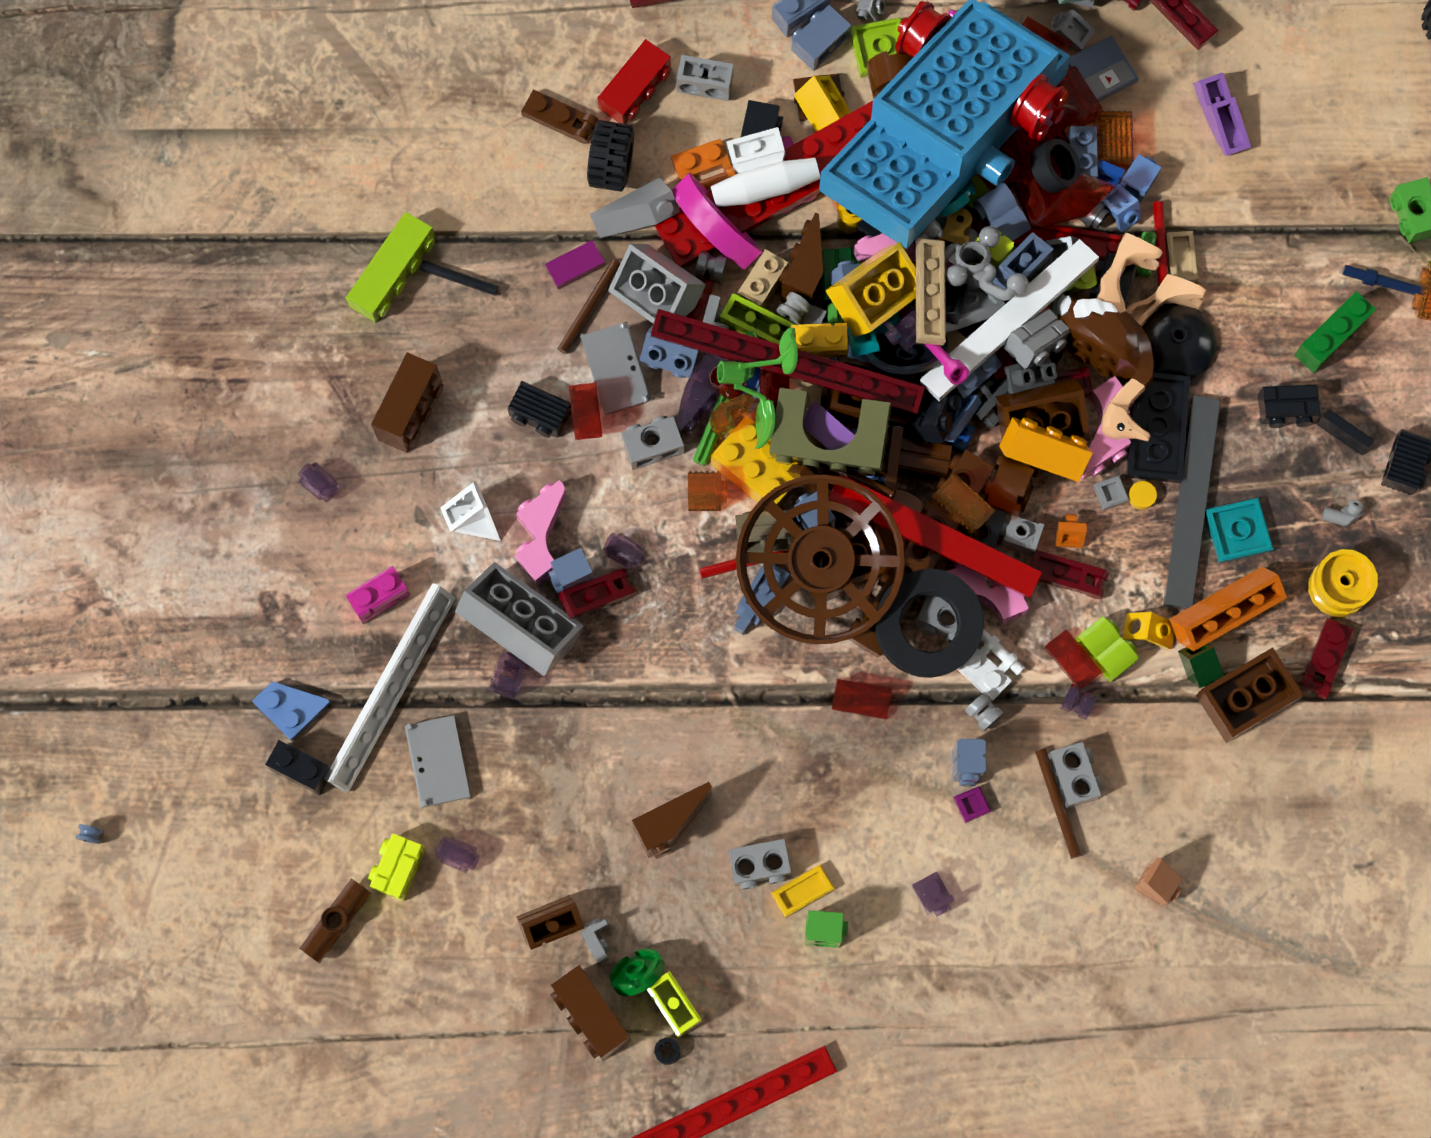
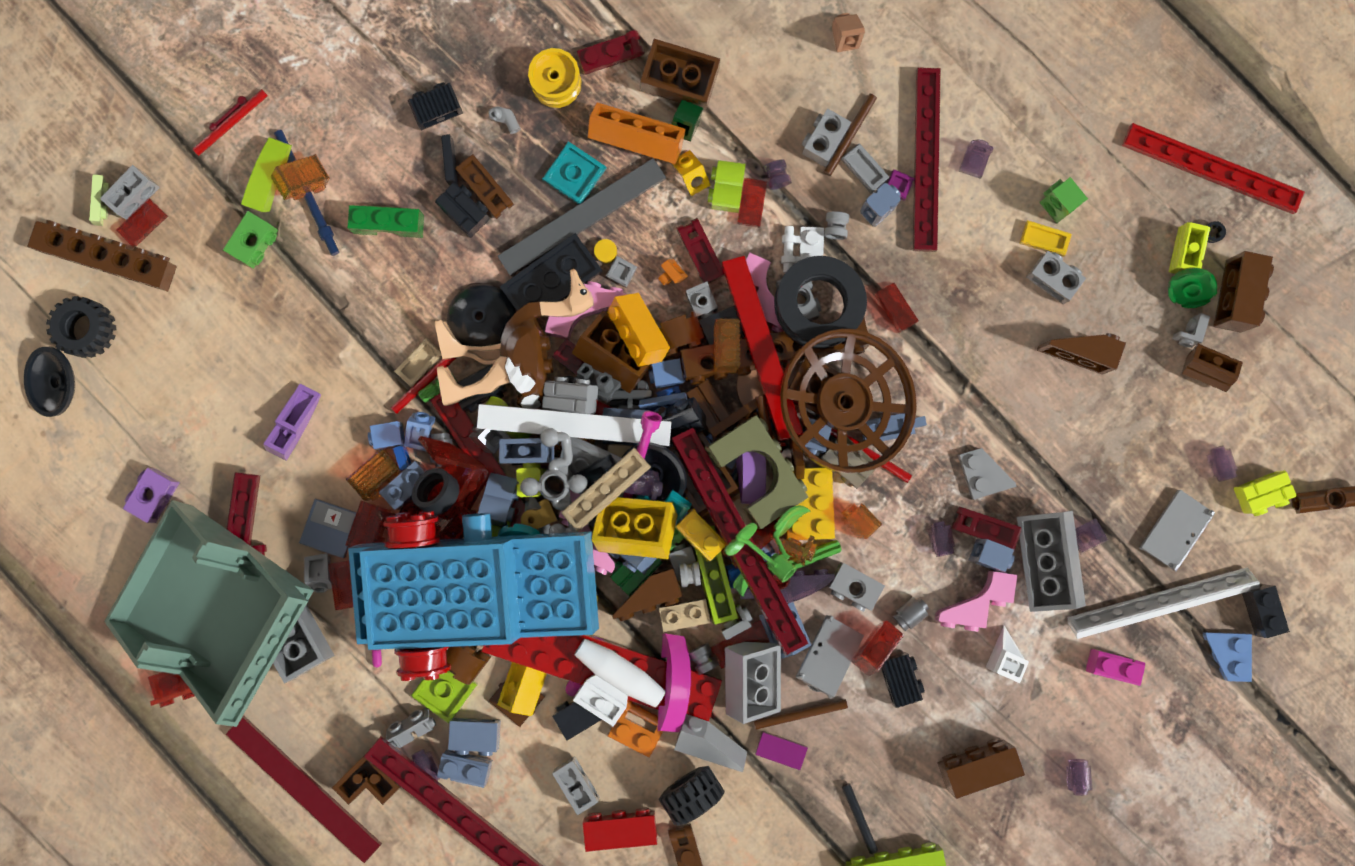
camera: 130 degrees left, 10 degrees up
(585, 467) = (911, 613): none -> flat silver brick
(644, 639) = (983, 474): none -> light grey wing
(974, 849) = (926, 160): none -> dark red plate
(986, 444) = (666, 373): none -> medium blue brick
(1014, 788) = (865, 168): none -> light grey tile
(1295, 442) = (484, 185): none -> reddish brown plate

